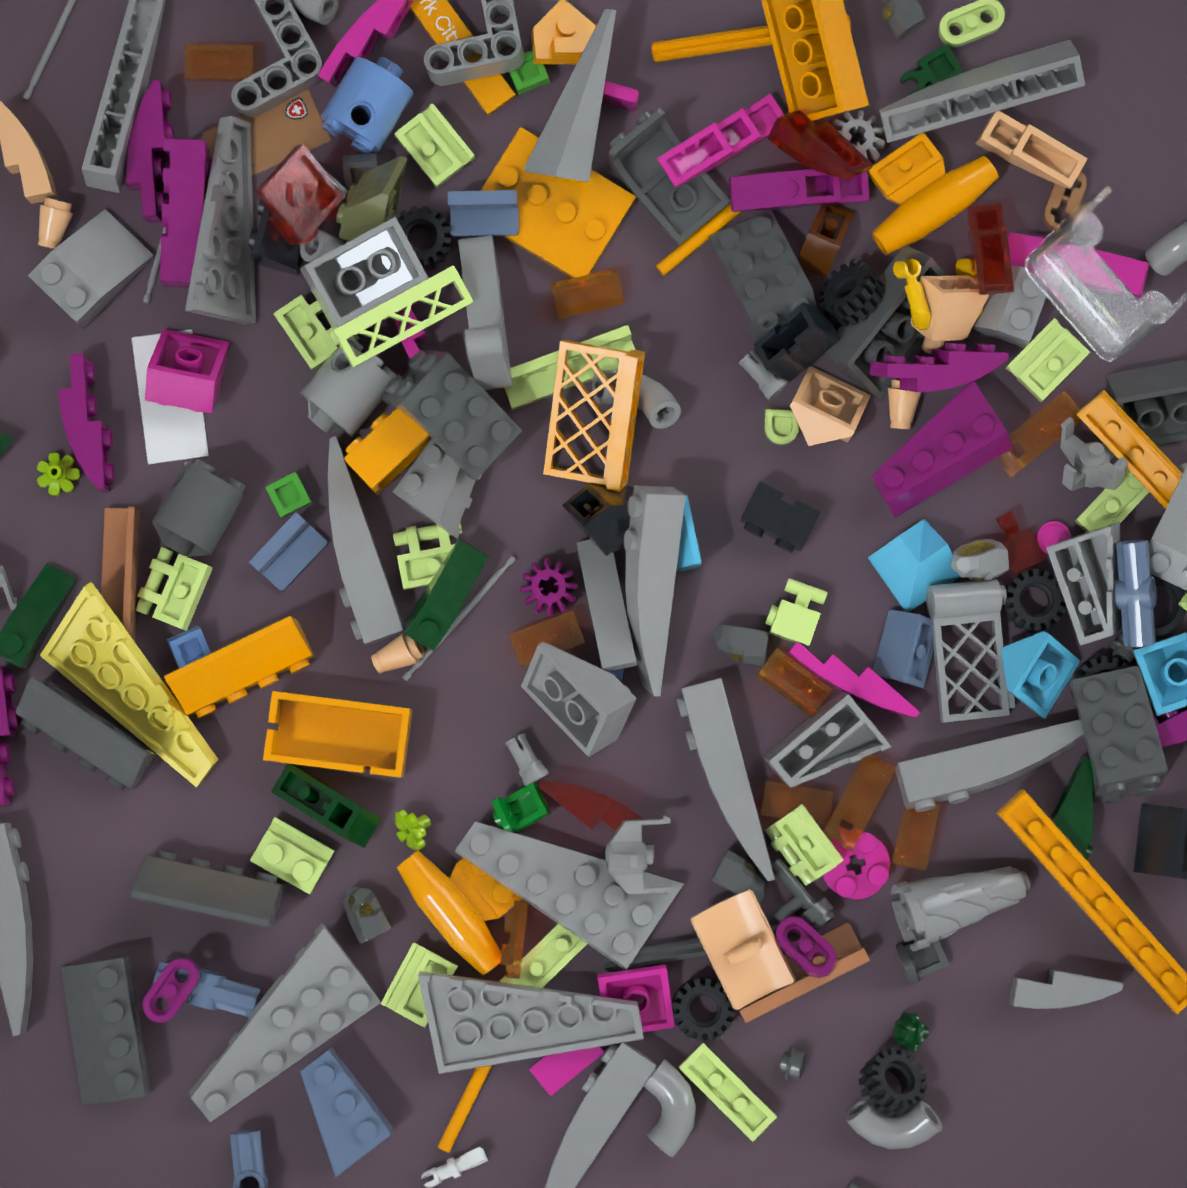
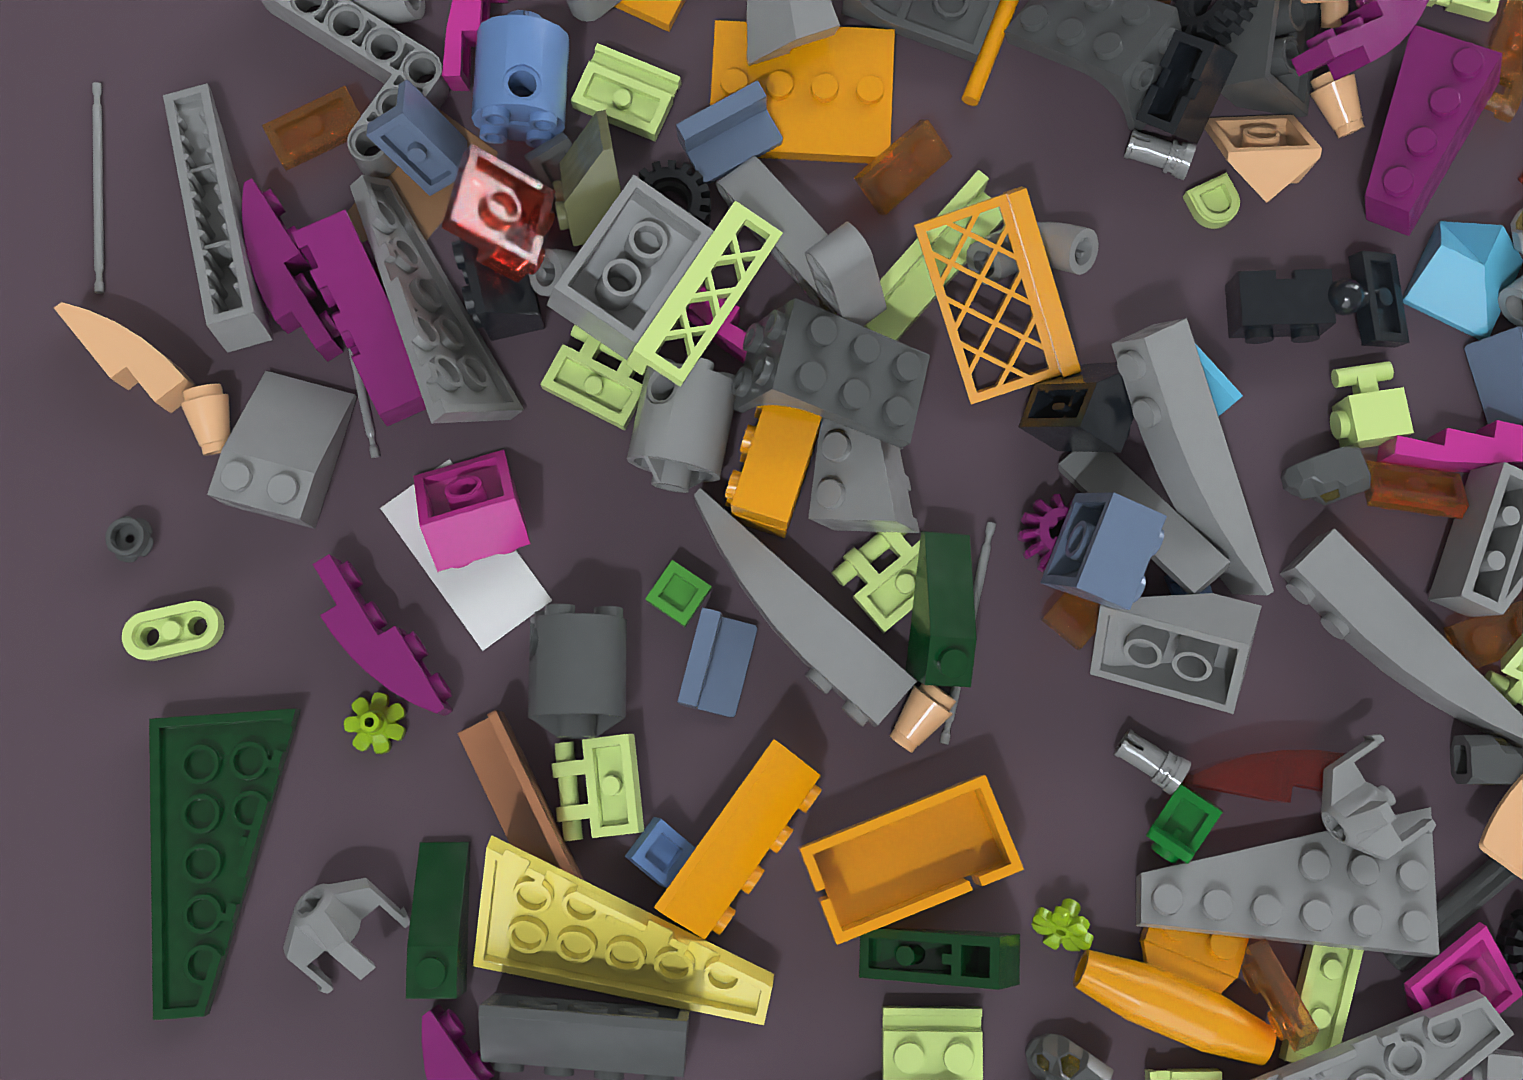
camera: 35 degrees left, 5 degrees down
(281, 112) = (419, 140): none -> sand blue panel
(557, 612) = (1105, 549): none -> sand blue slope
(844, 548) = (1375, 296): none -> black plate

